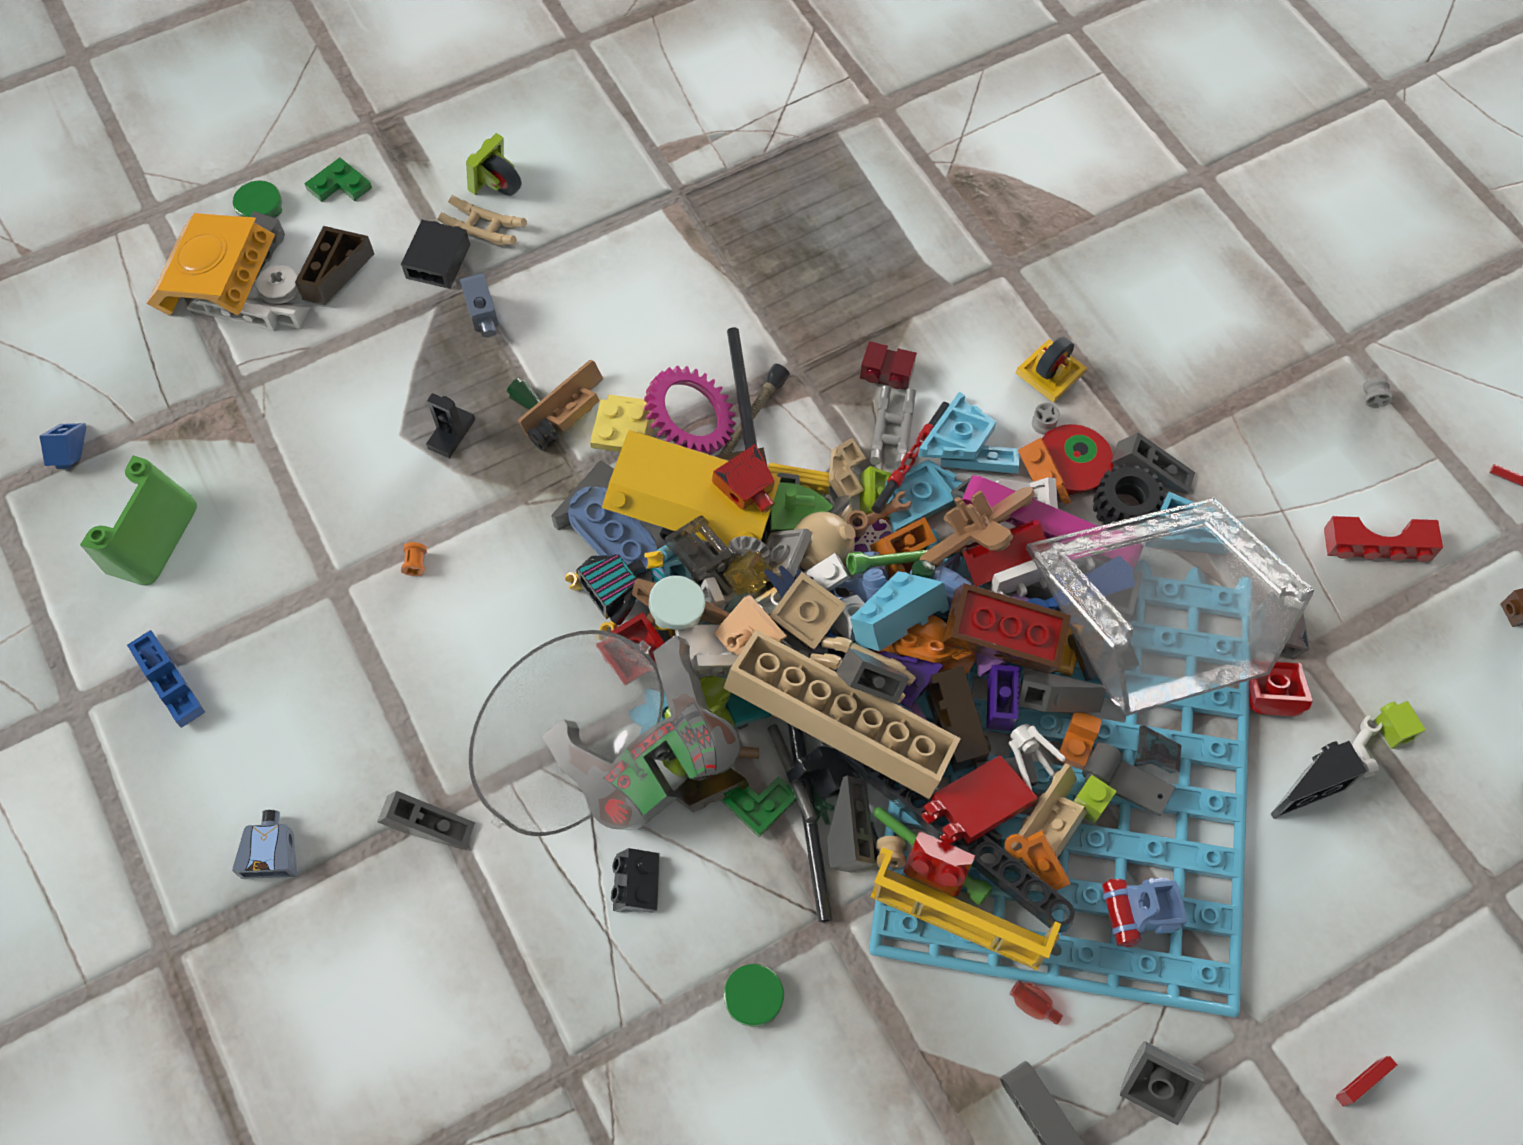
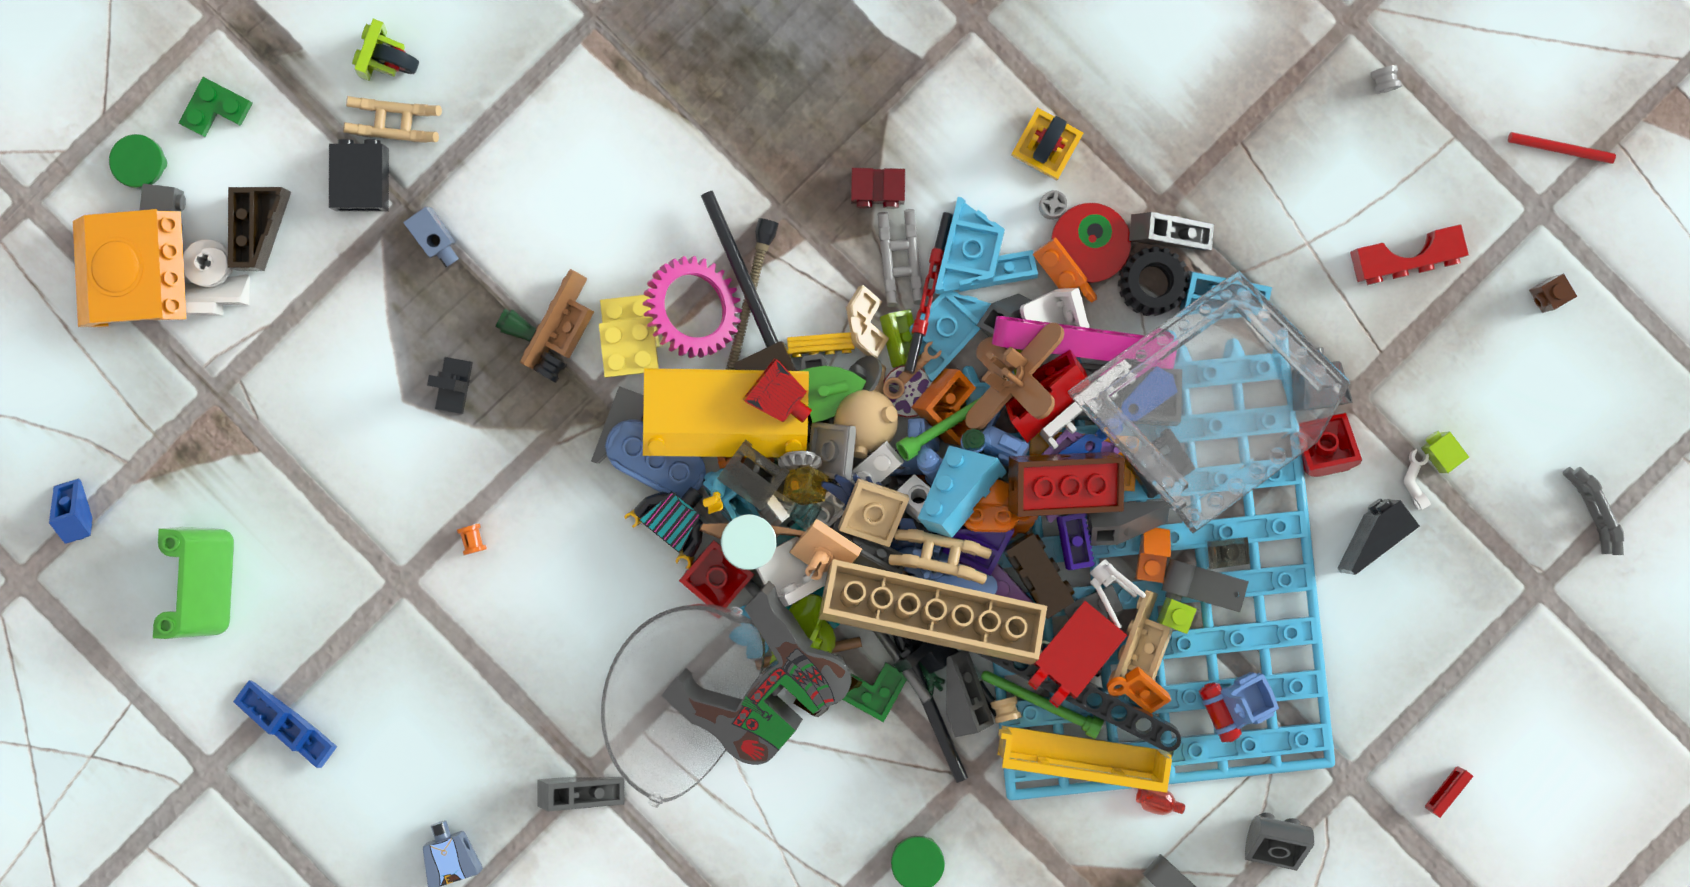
camera: 15 degrees left, 25 degrees up
(635, 880) = (785, 792): black bracket -> none
(871, 676) = (952, 576): dark grey slope -> none
(938, 864) = (1052, 722): red slope -> none

